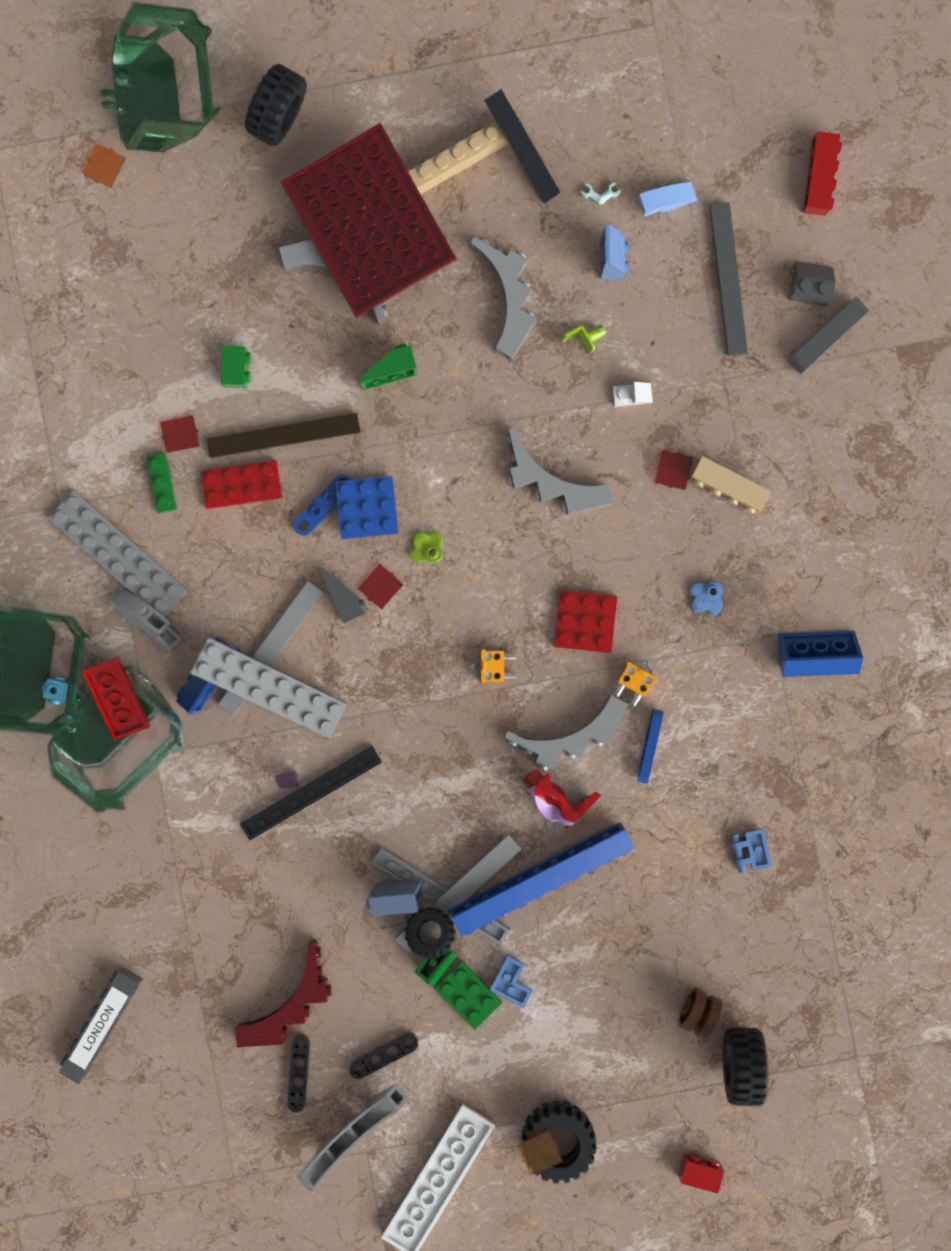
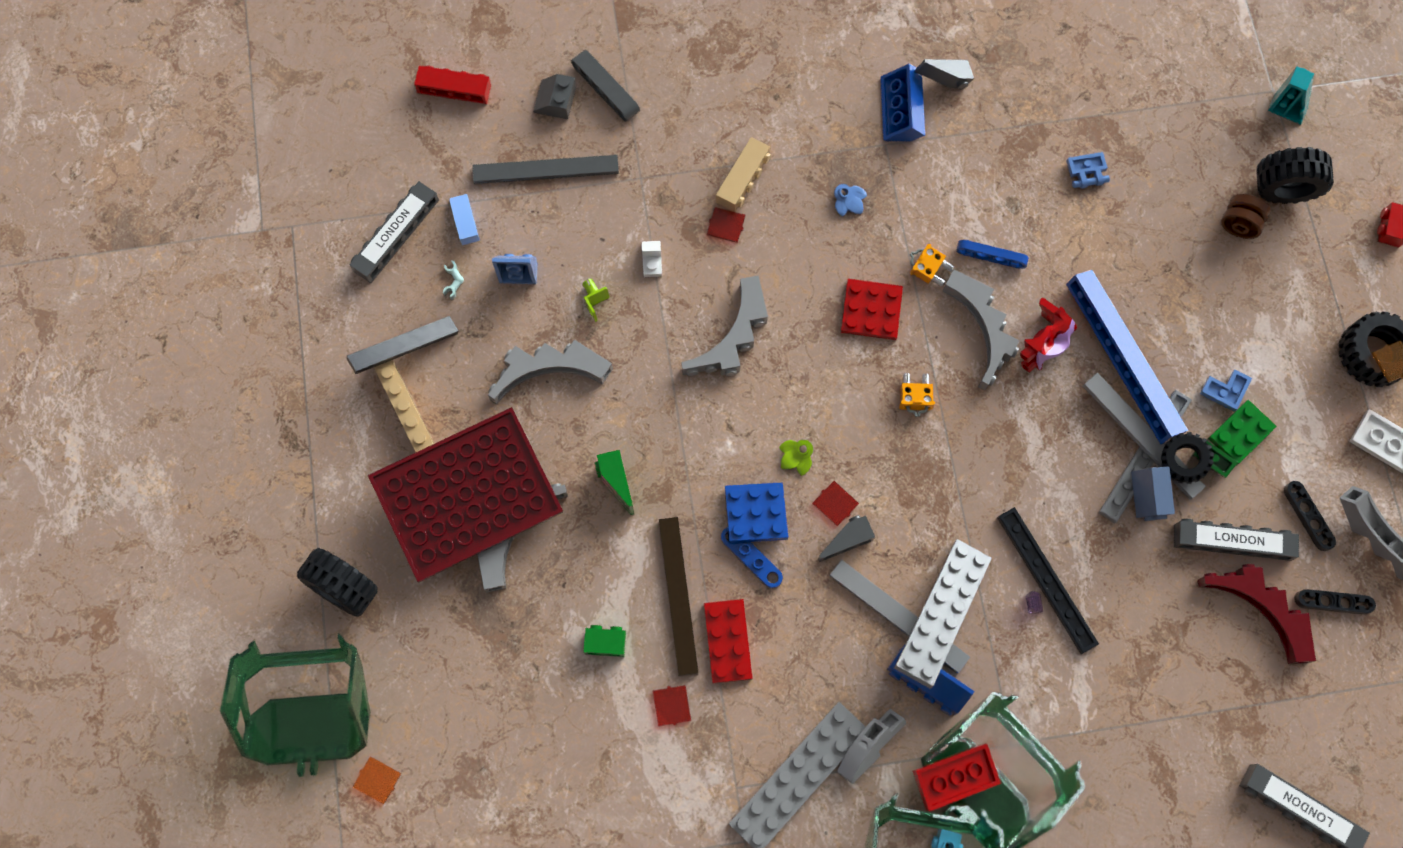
camera: 90 degrees left, 15 degrees down
(161, 483) = (724, 726): green plate -> none
(355, 980) = (1236, 540): none -> dark grey brick
(649, 128) = (394, 232): none -> dark grey brick
(844, 1075) = (1293, 96): none -> teal wedge
(857, 704) = (947, 72): none -> dark grey slope

